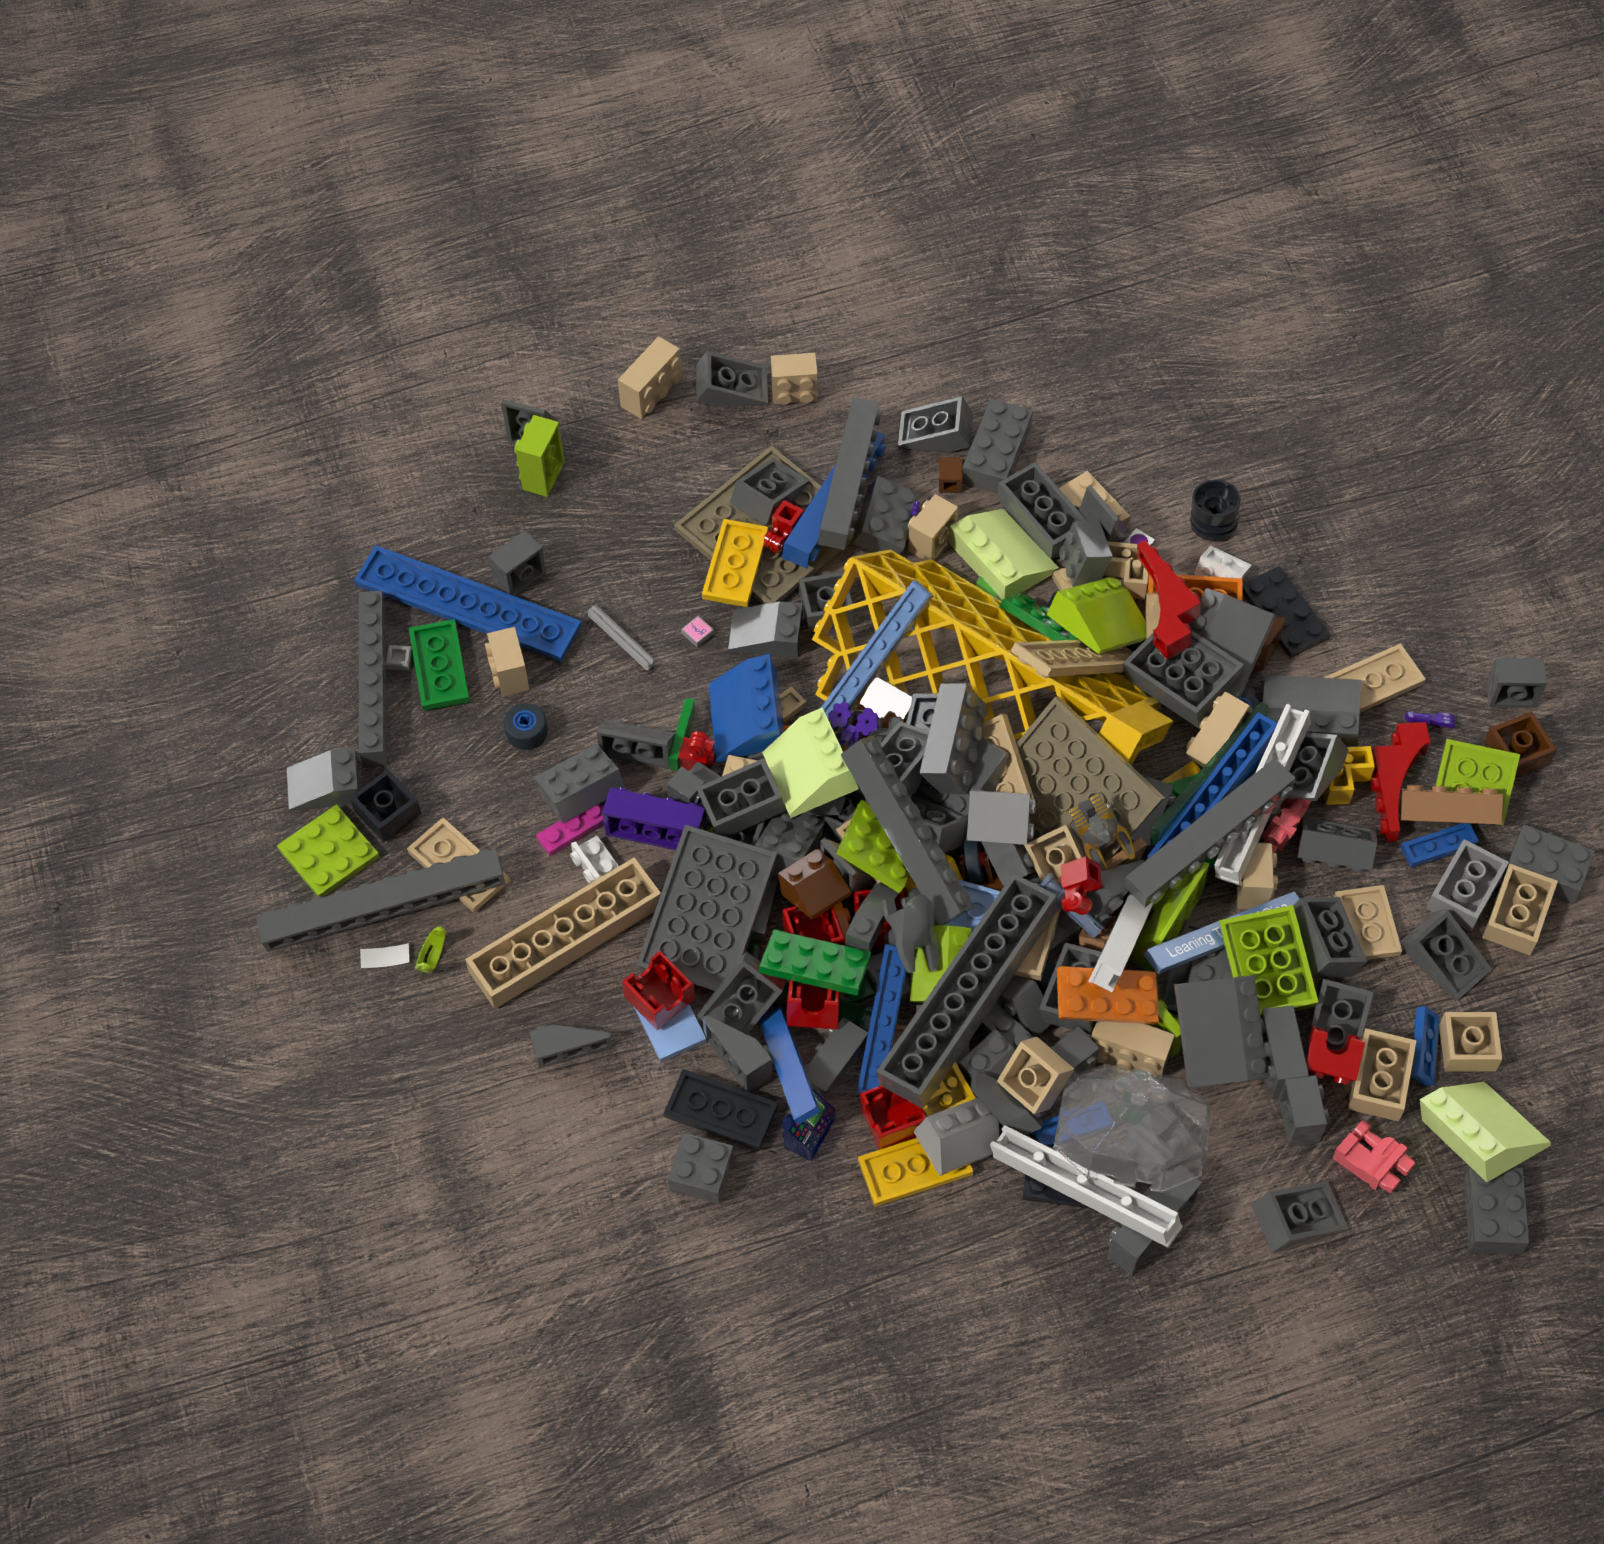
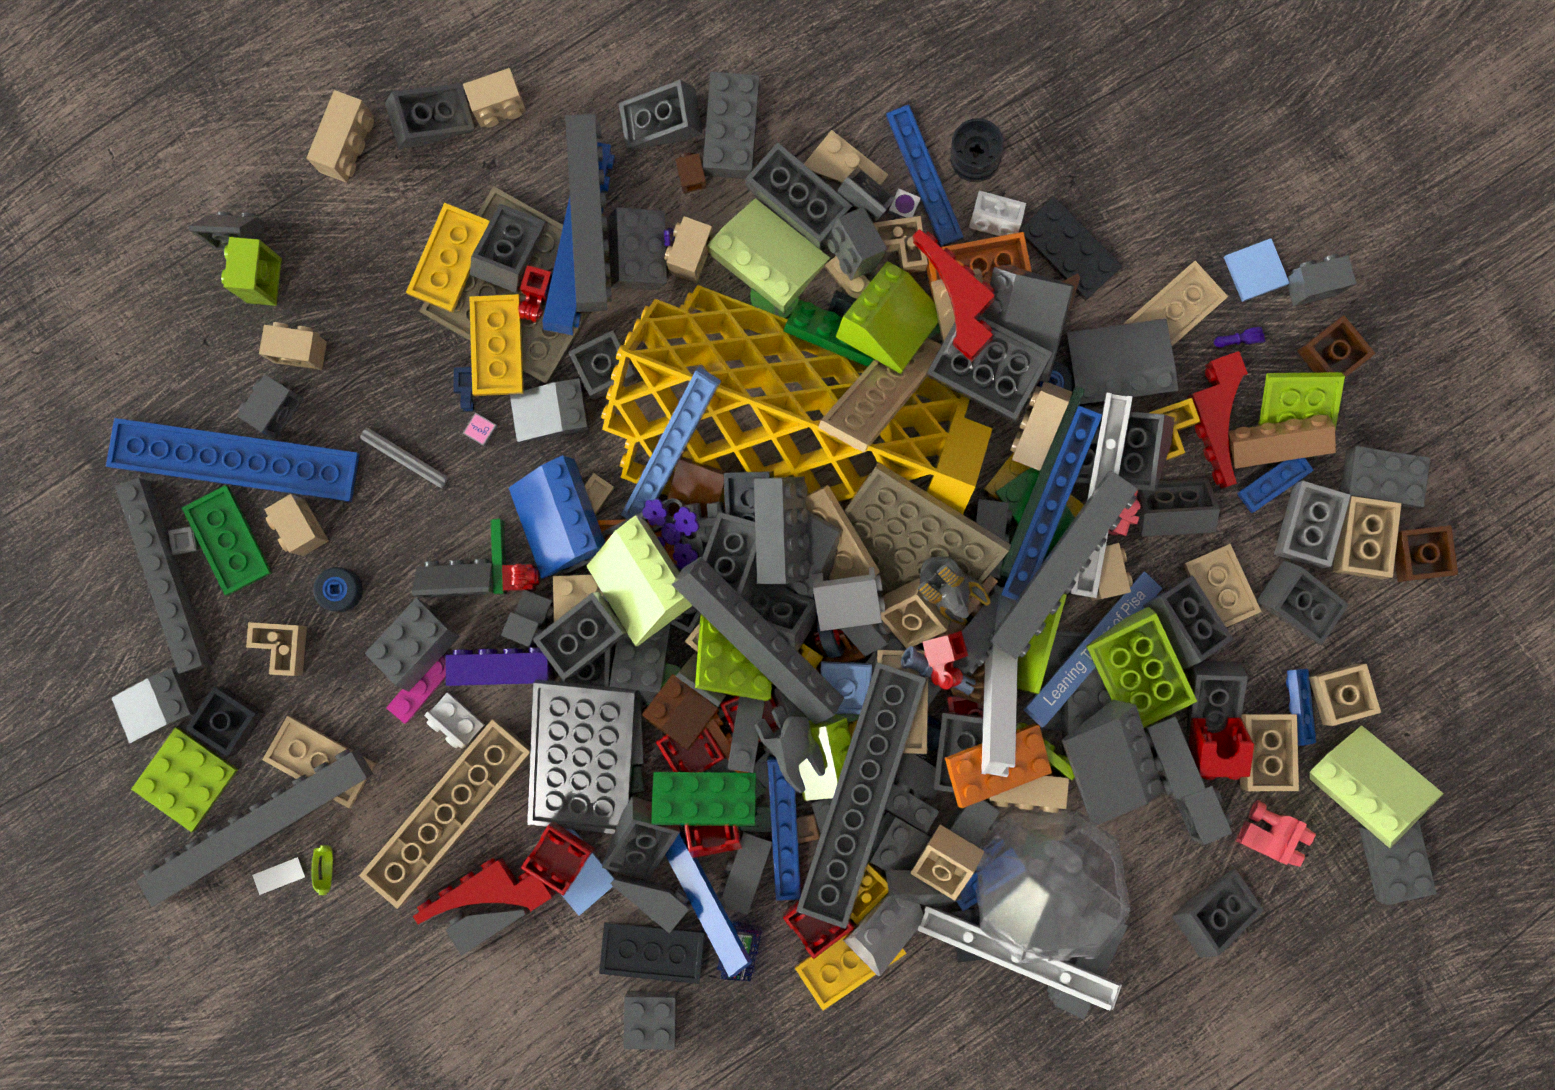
camera: 15 degrees left, 25 degrees up
(460, 753) = (286, 646): none -> tan brick
(554, 523) = (293, 346): none -> tan brick
(579, 1009) = (490, 885): none -> red arch
(694, 594) = (463, 386): none -> dark blue plate
(711, 487) = (447, 258): none -> yellow plate
(1162, 518) = (924, 176): none -> blue tile
(1458, 667) = (1256, 270): none -> light blue tile
(1575, 936) = (1425, 554): none -> reddish brown brick

